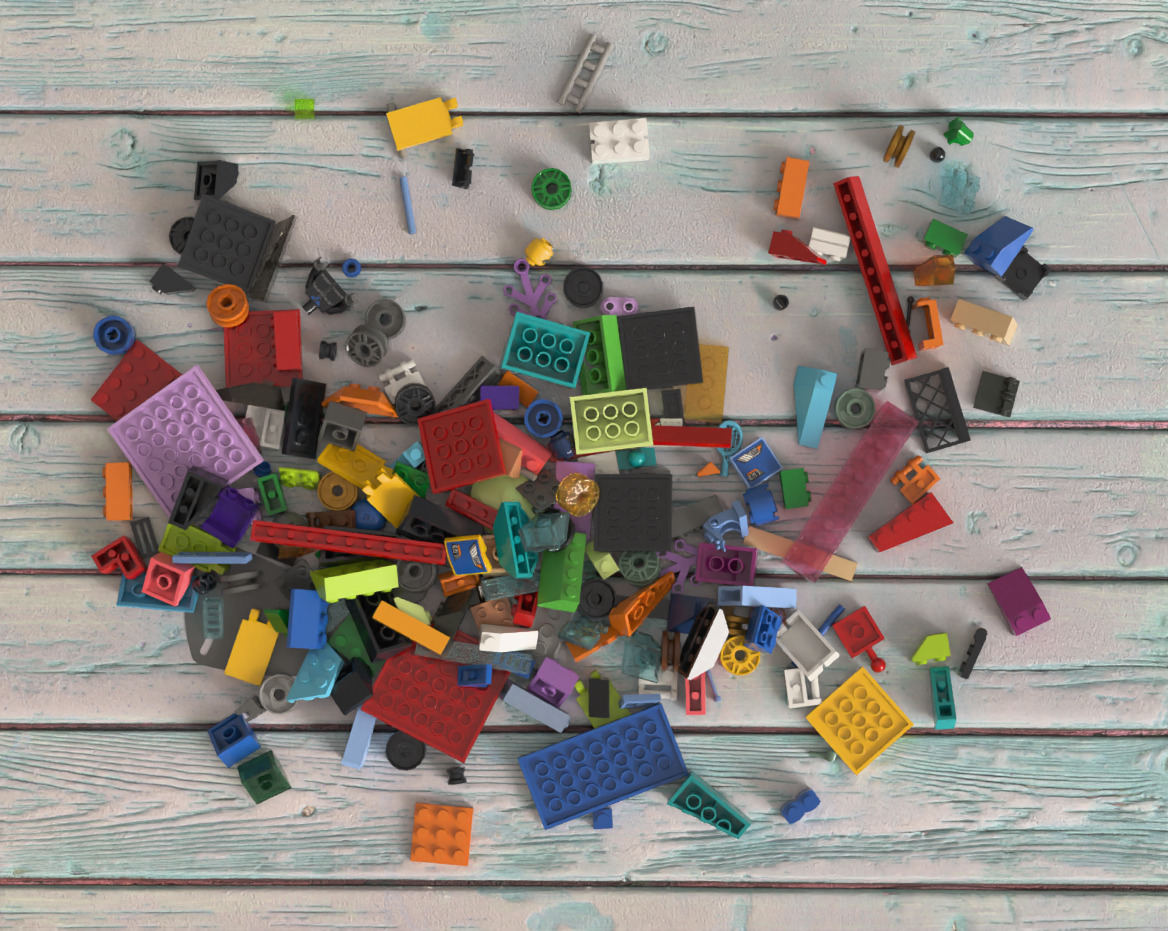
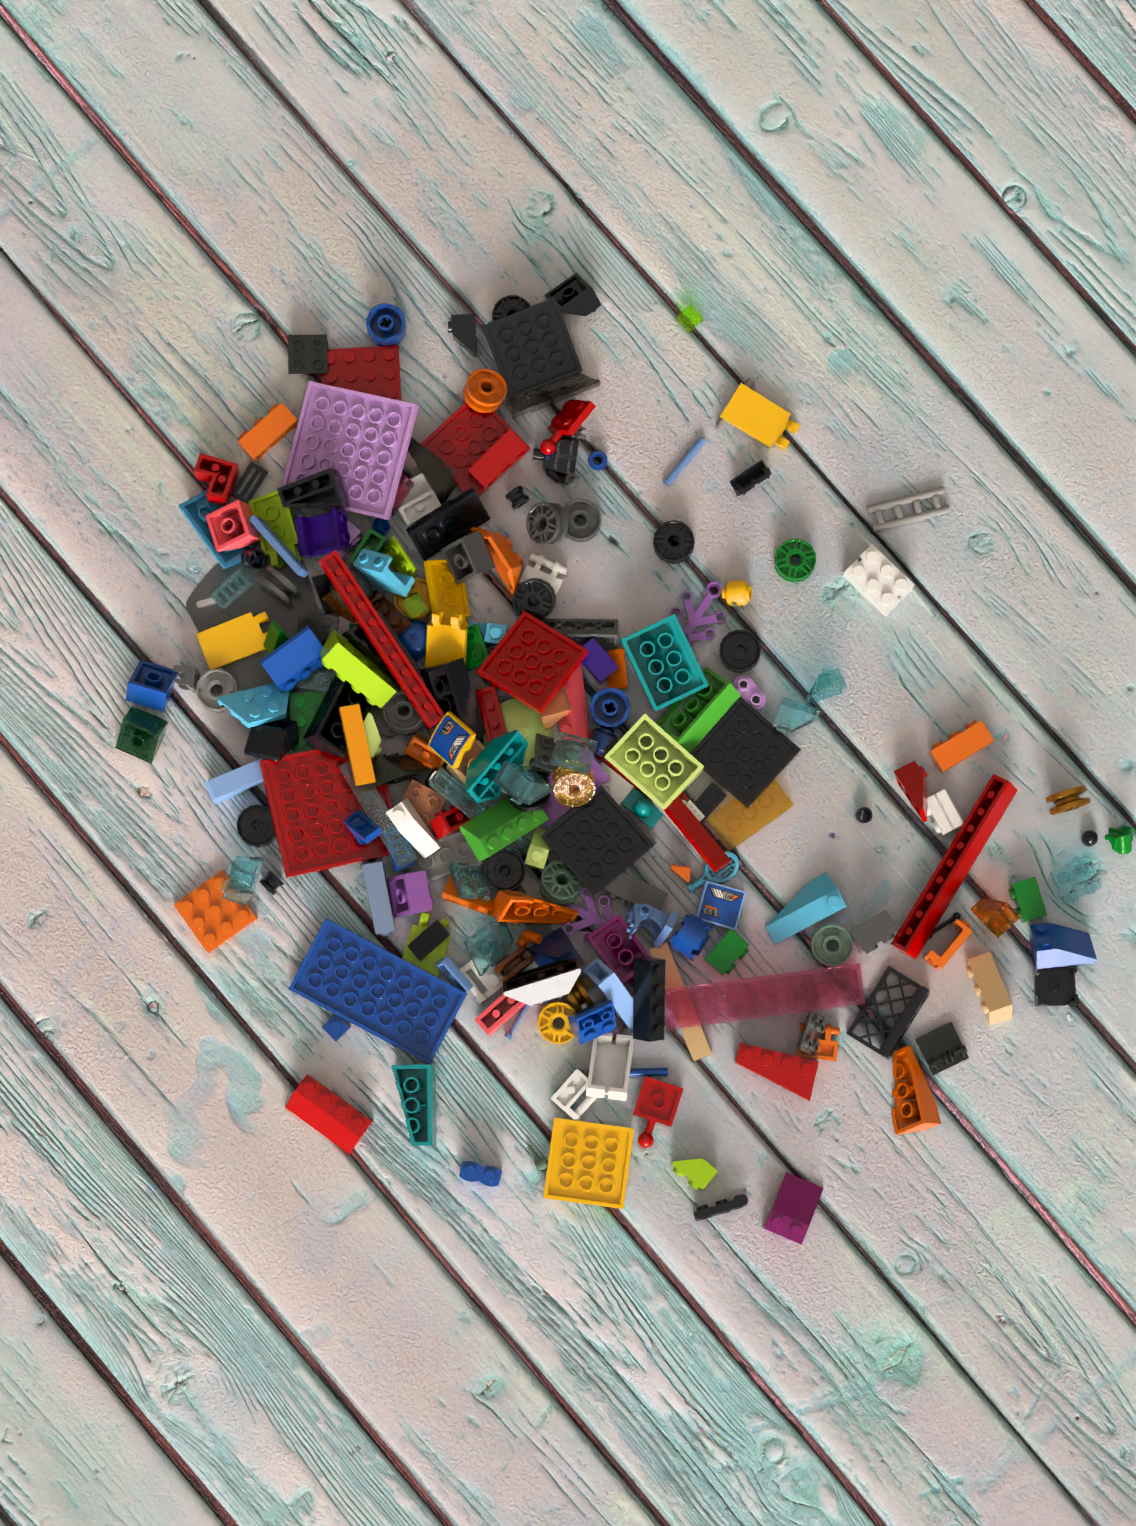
camera: 50 degrees right, 5 degrees down
(85, 412) = (308, 354): none -> pearl dark grey hinge
(292, 501) = (375, 568): none -> medium azure panel
(304, 266) = (566, 422): none -> red plate
(343, 495) = (415, 606): none -> clear neon green plate
(435, 796) = (241, 879): none -> clear light blue slope
(456, 254) = (676, 530): none -> black wheel
(555, 474) = (573, 752): none -> clear light blue plate
(657, 623) = (527, 937): none -> orange arm
(661, 877) = (328, 1114): none -> red slope
(662, 245) = (827, 685): none -> clear light blue slope
(665, 289) = (794, 715): none -> clear light blue slope
(782, 576) = (649, 999): none -> black brick
(912, 486) = (814, 1027): none -> dark grey hinge
(942, 698) = (663, 1214): teal slope -> none
(1016, 447) = (914, 1102): none -> orange wedge

